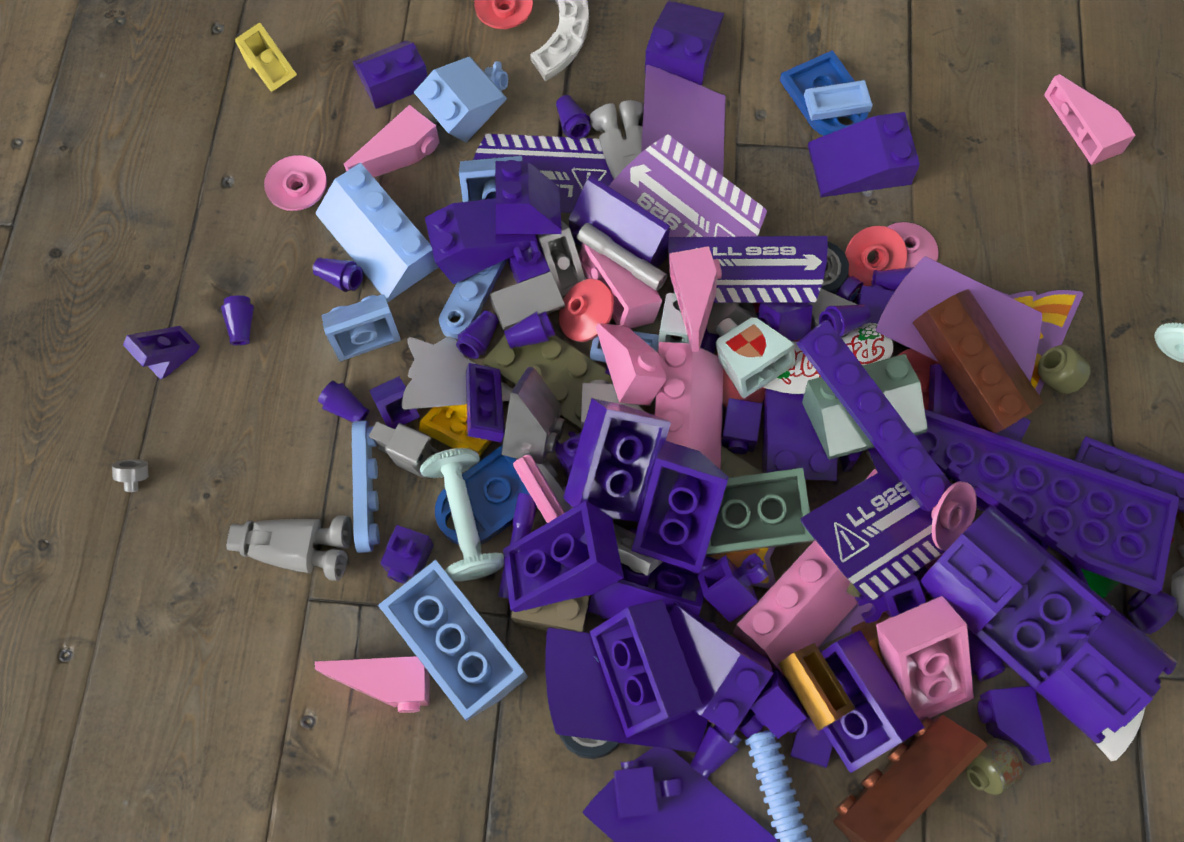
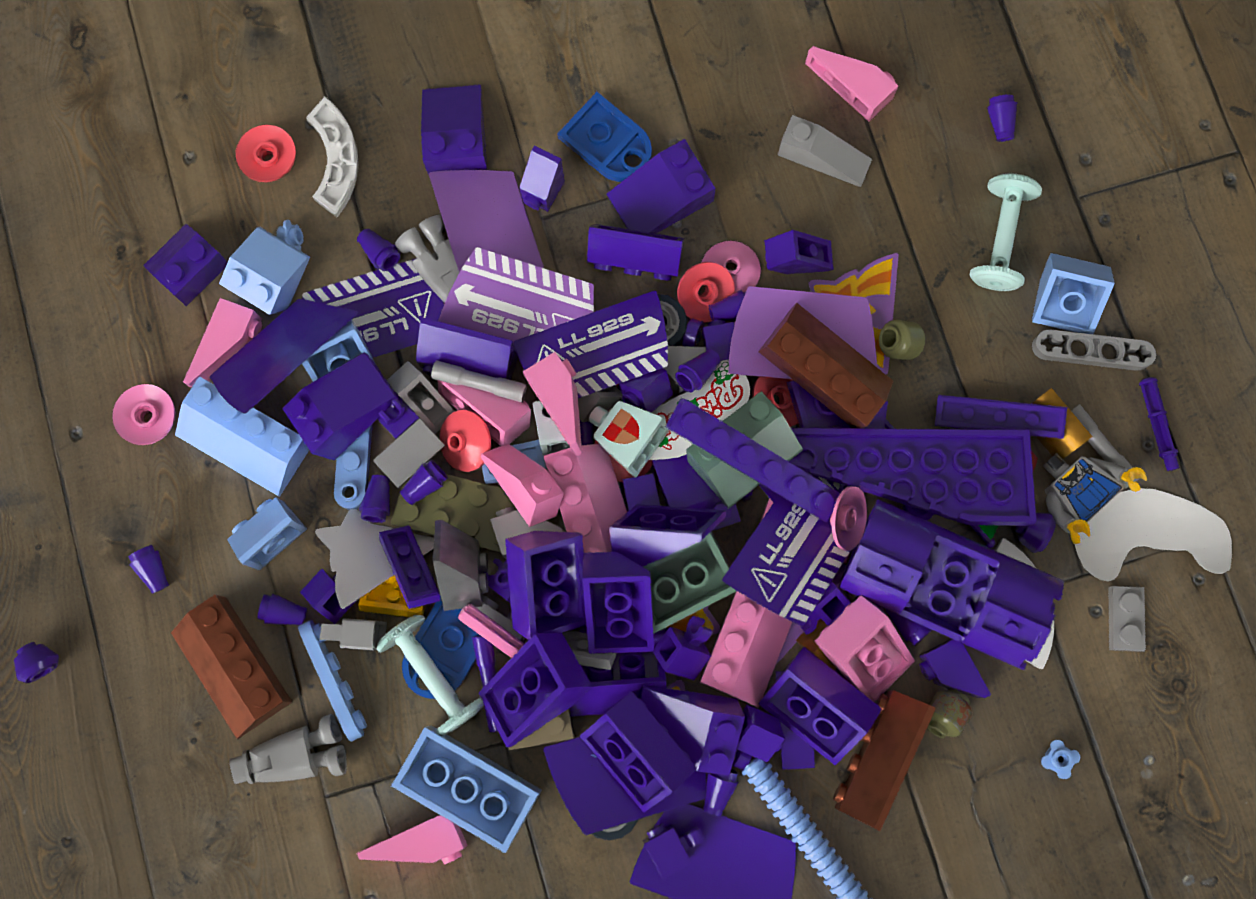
camera: 20 degrees left, 10 degrees up
(93, 364) = (34, 662): none -> dark purple cone
(130, 472) = (116, 749): light grey tile -> none
(161, 349) = (91, 624): dark purple slope -> none
(265, 57) = (58, 297): light yellow slope -> none
(272, 435) = (230, 665): none -> copper slope
(339, 273) = (223, 488): dark purple cone -> none
(406, 554) = (395, 728): dark purple brick -> none
(440, 165) = (277, 352): none -> dark purple sticker
(525, 200) = (371, 362): dark purple slope -> none
(750, 453) = (658, 531): none -> dark purple slope
(752, 103) = (541, 179): none -> slope
(816, 686) = (784, 710): pearl gold brick -> none
(819, 194) = (634, 251): none -> dark purple slope
(838, 100) = (619, 144): light blue tile -> none
(981, 254) = (798, 253): none -> dark purple slope
(1037, 172) = (823, 151): none -> light grey slope

